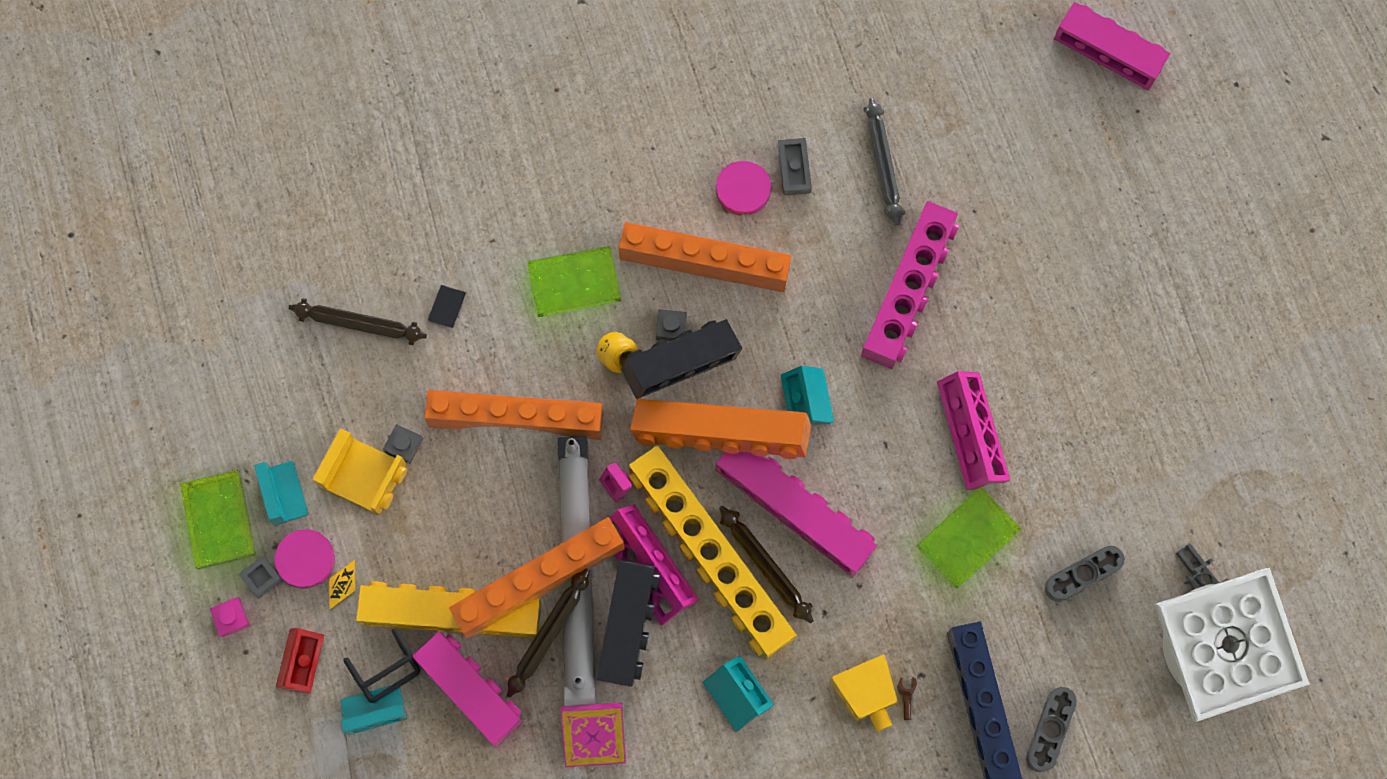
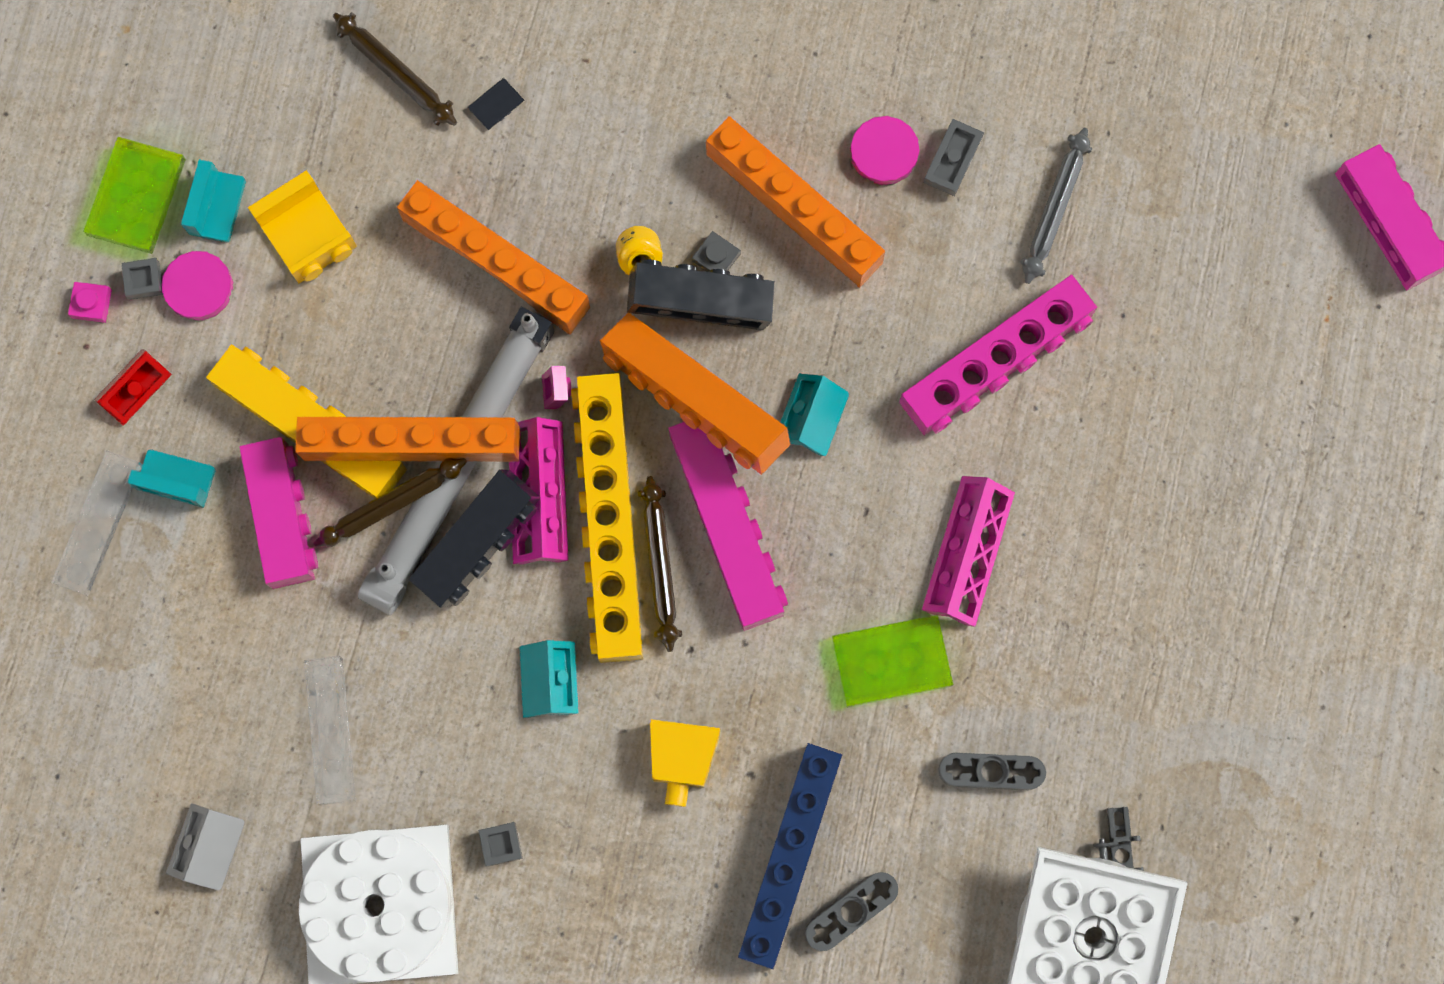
camera: 35 degrees right, 5 degrees up
(342, 584) = (219, 333): yellow sticker -> none
(403, 443) = (365, 223): dark grey plate -> none
(408, 658) = (177, 446): black piece -> none
(574, 281) = (643, 151): clear neon green plate -> none
(593, 734) = (373, 633): tile -> none
(907, 696) = (720, 788): reddish brown hand -> none

